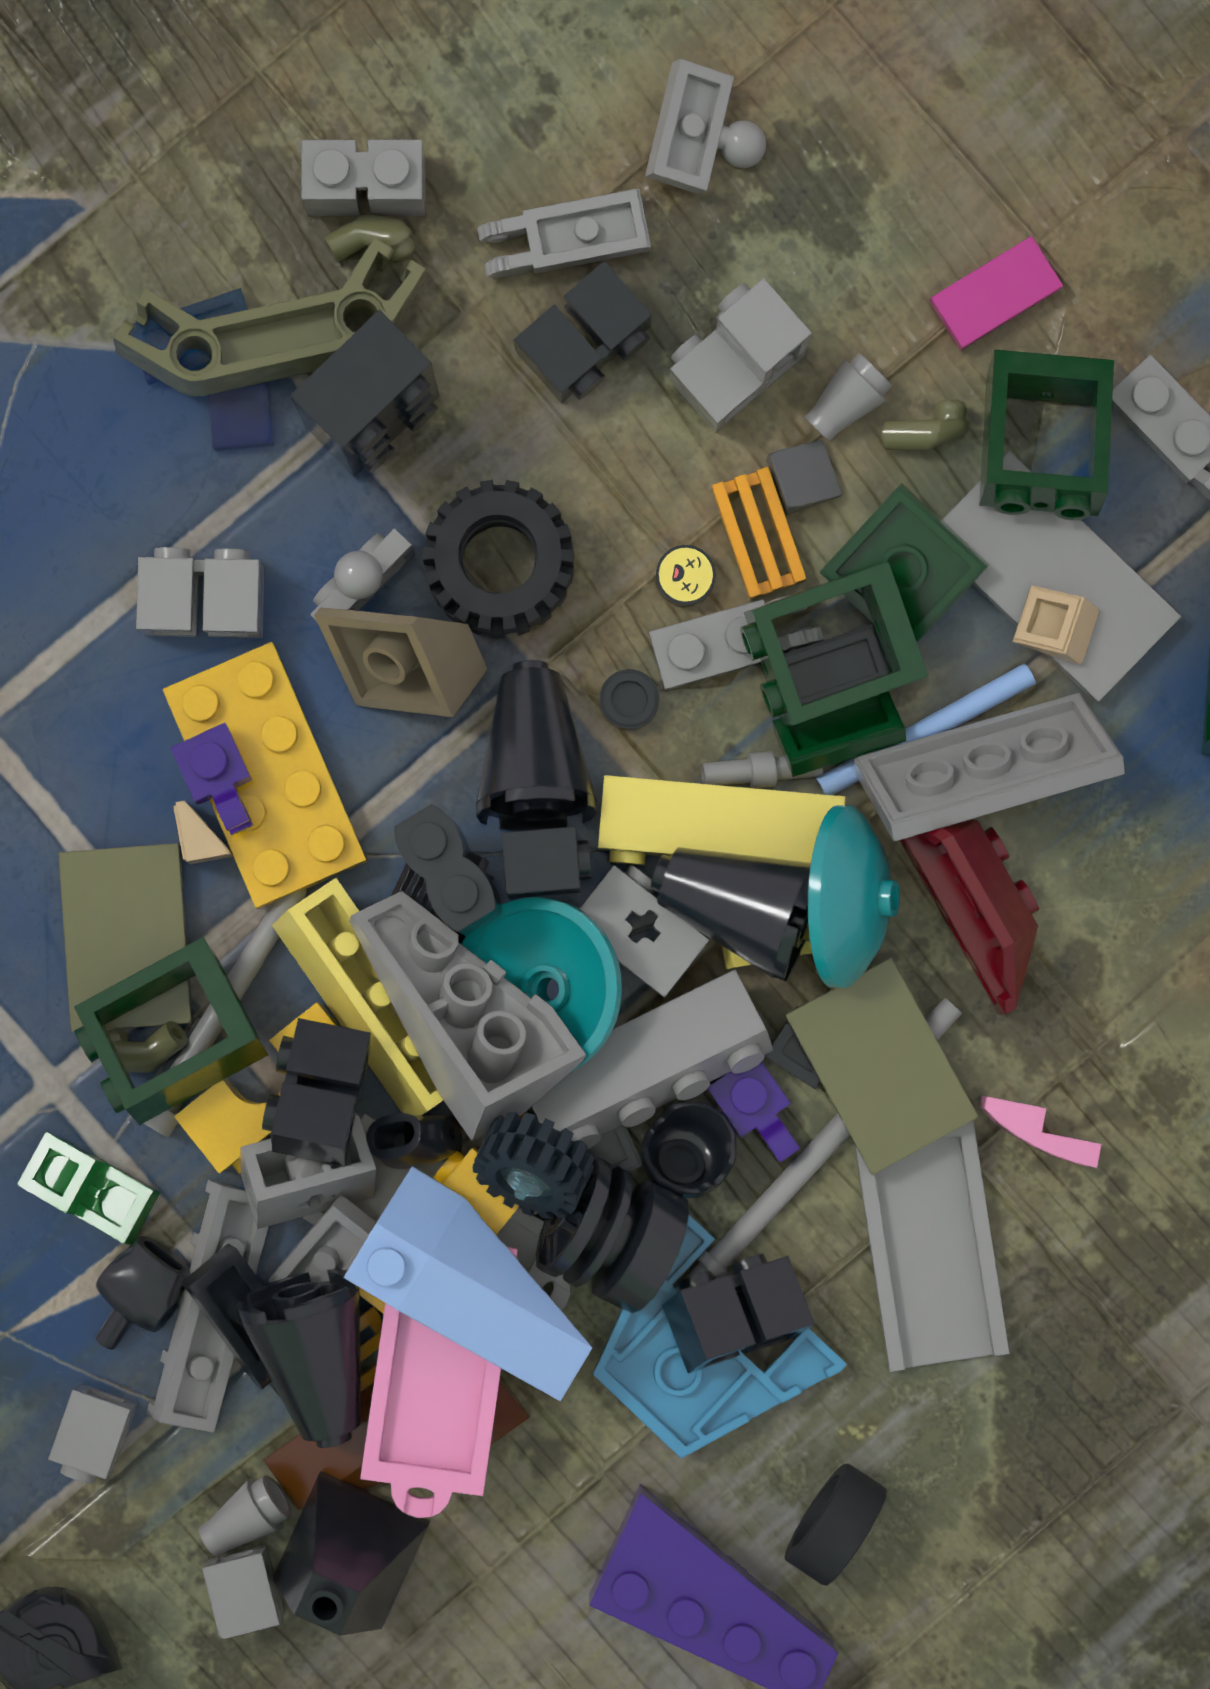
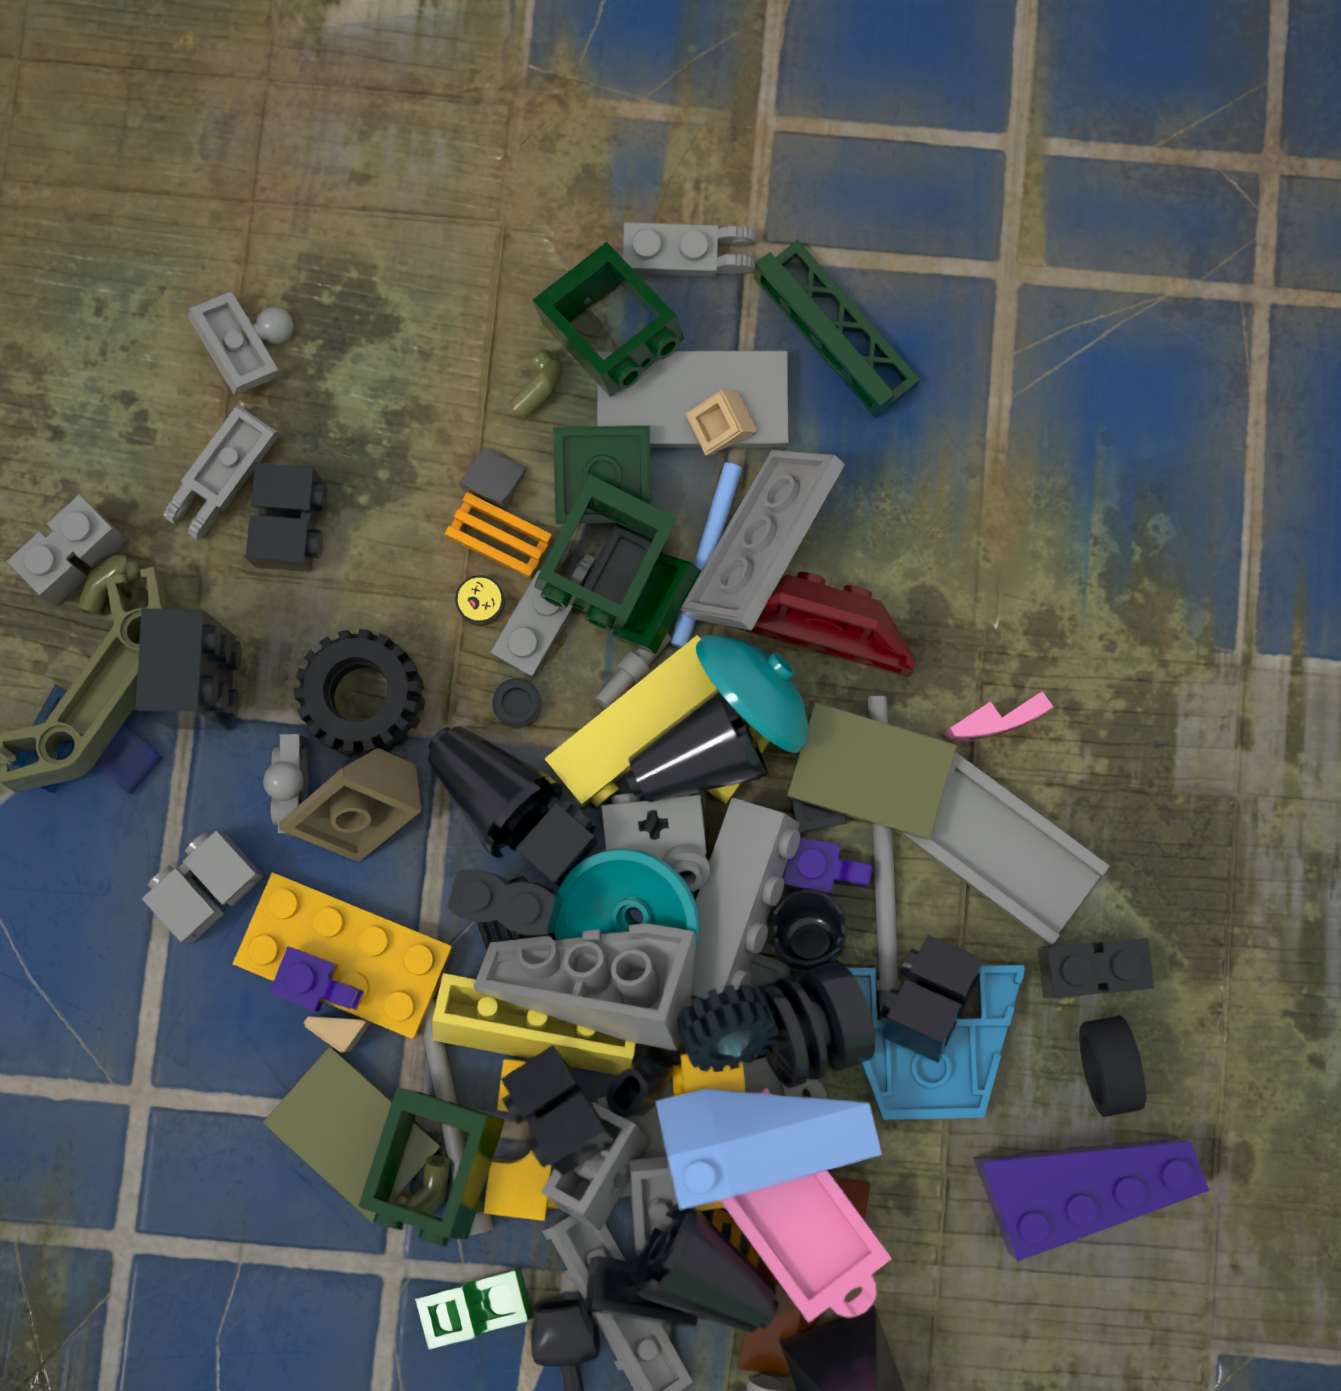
camera: 40 degrees left, 5 degrees down
(645, 992) = (691, 859): none -> light grey plate
(748, 351) = (391, 438): light grey brick -> none
(848, 397) = (475, 407): light grey cone -> none
(888, 1415) = (1095, 968): none -> black piece
(996, 293) = (502, 272): dark pink tile -> none

